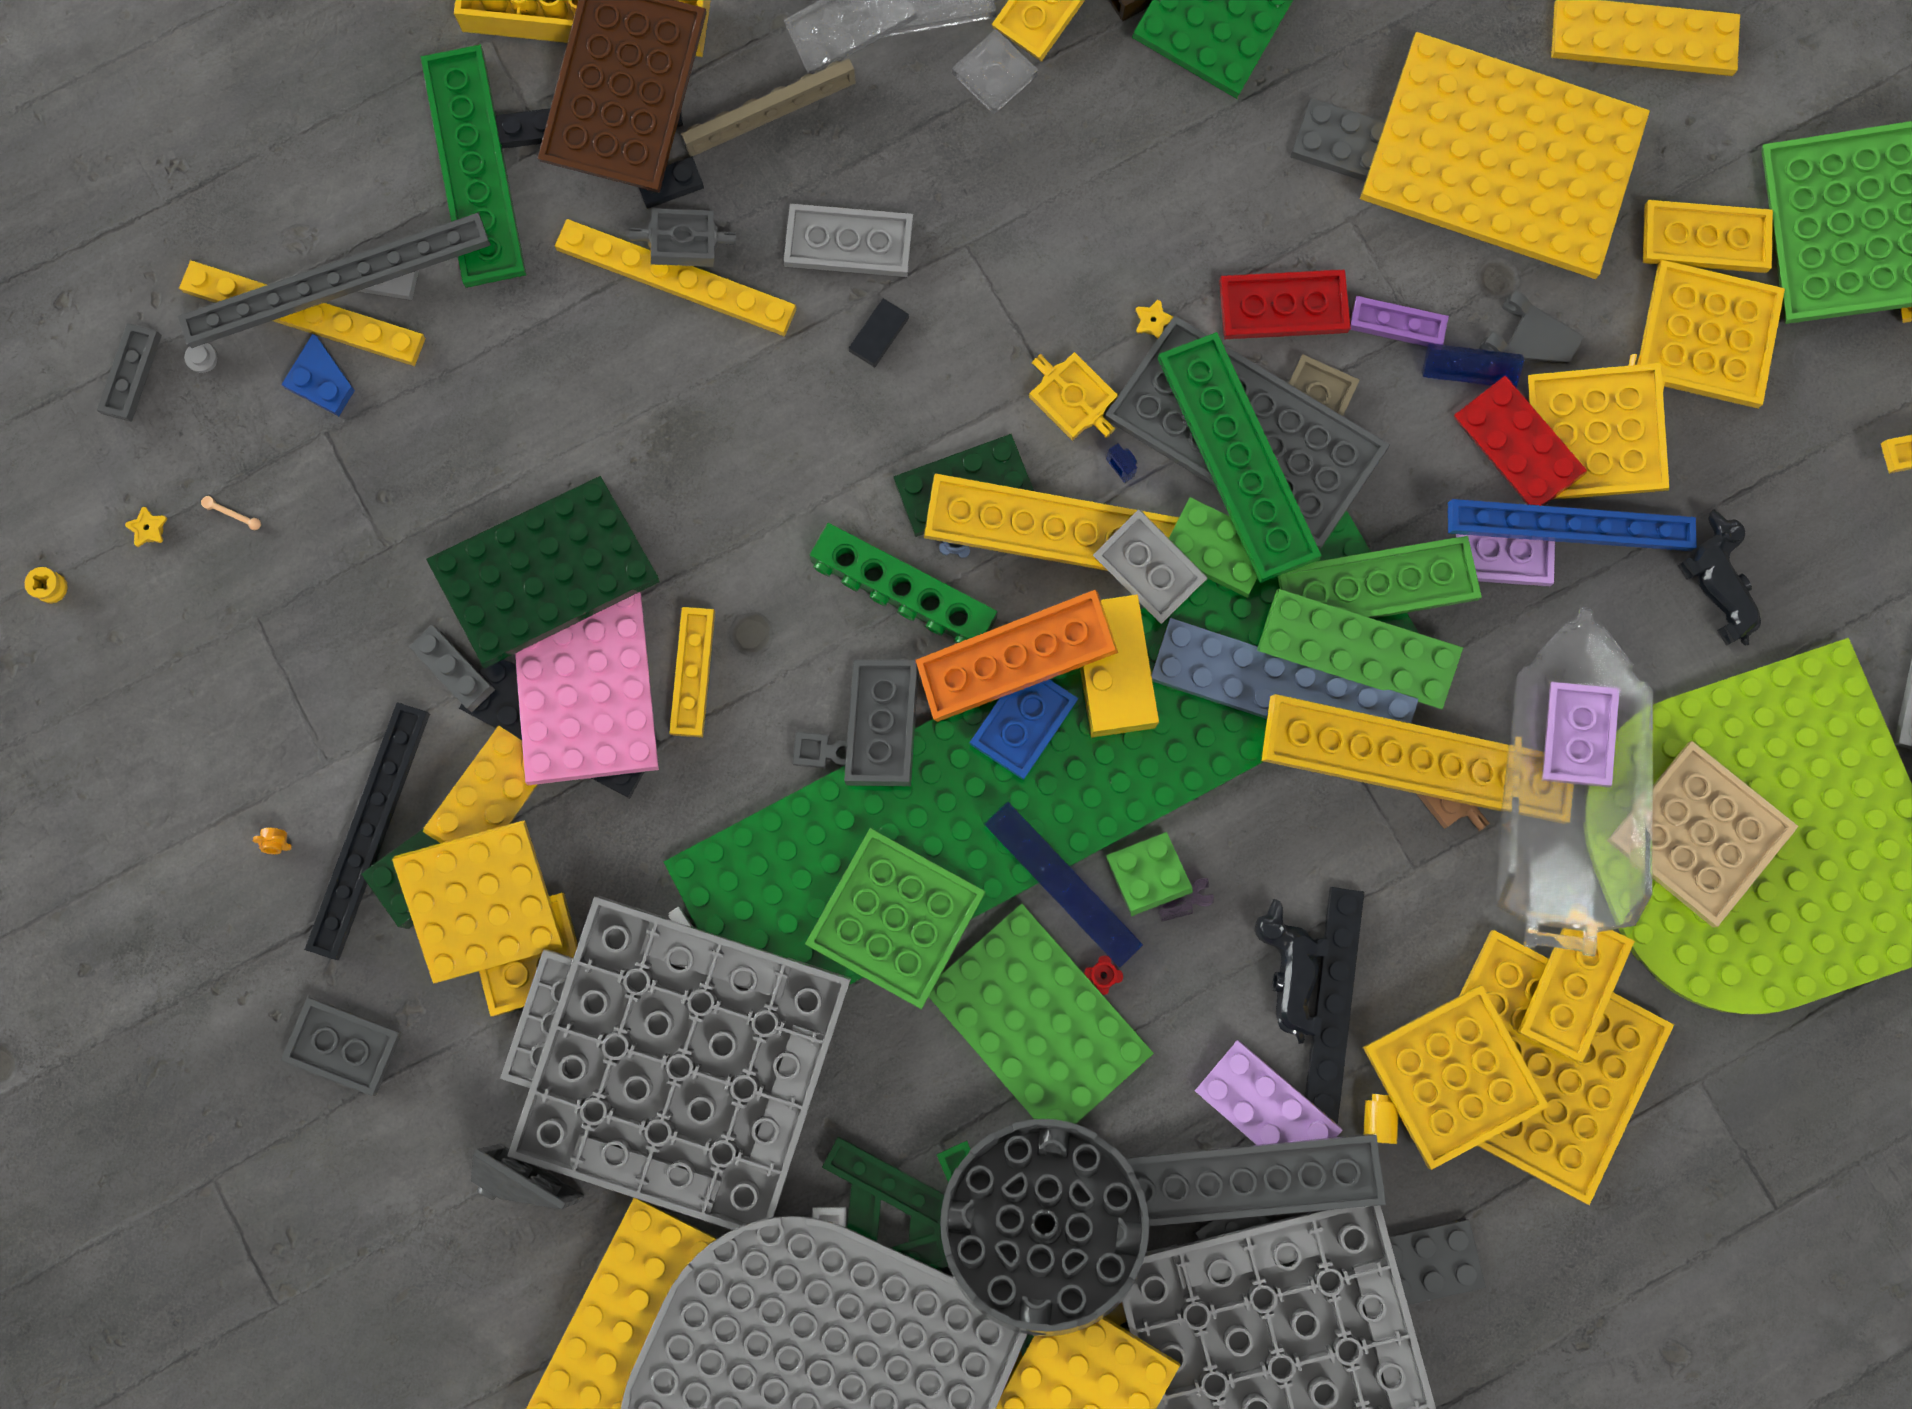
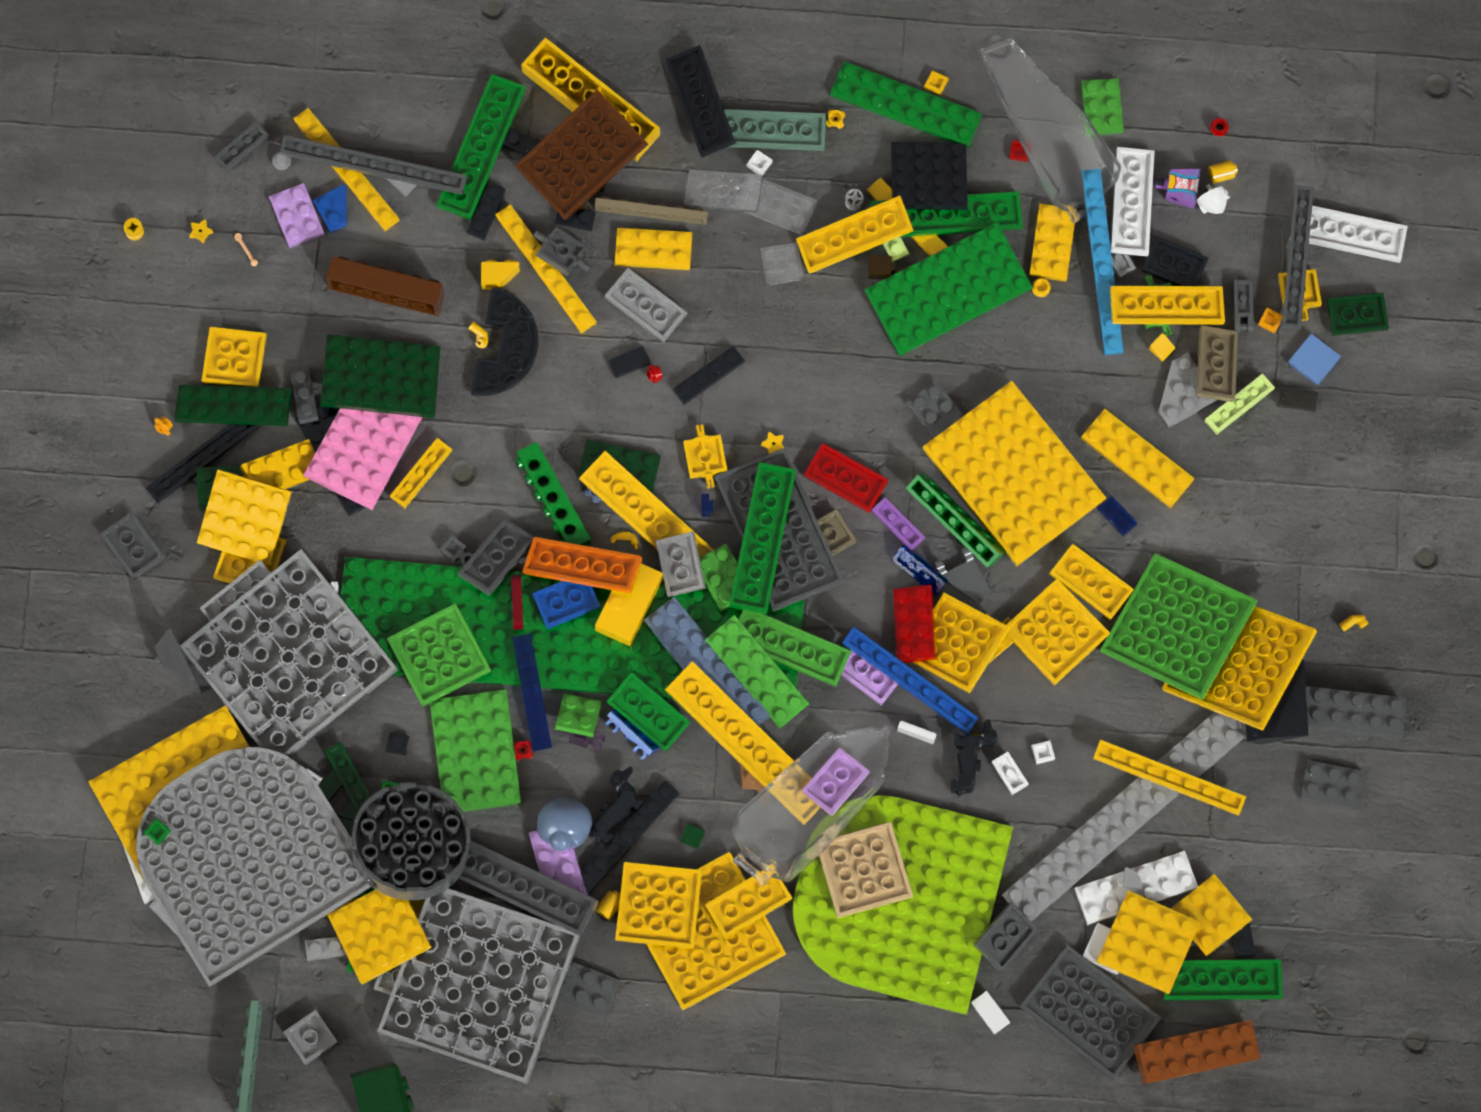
camera: 30 degrees right, 5 degrees down
(273, 420) = (296, 215): none -> lavender plate
(313, 677) = (234, 357): none -> yellow plate
(356, 747) = (233, 405): none -> dark green plate
(464, 438) = (385, 286): none -> reddish brown brick
(539, 249) = (486, 211): none -> black plate
(614, 324) = (498, 273): none -> yellow slope
(647, 423) = (481, 335): none -> yellow arm
(709, 410) = (516, 349): none -> black plate
(806, 158) = (653, 249): none -> yellow plate
(919, 1084) = (397, 744): none -> black plate
(925, 326) = (654, 373): none -> red plate
(956, 769) = (517, 602): none -> dark red beam
(999, 283) = (708, 375): none -> black plate
(1040, 576) = (626, 536): none -> yellow piece
(1241, 849) = (632, 733): none -> plate
(1241, 1047) = (564, 823): none -> sand blue piece
(1245, 804) = (648, 711): none -> green plate
(1424, 941) = (692, 836): none -> dark green tile
(1476, 266) = (955, 519): none -> green brick
(1627, 591) = (916, 732): none -> white tile
(1678, 127) = (1117, 516): none -> clear blue plate
(1789, 566) = (1009, 773): none -> white plate
(1808, 509) = (1043, 752): none -> white tile

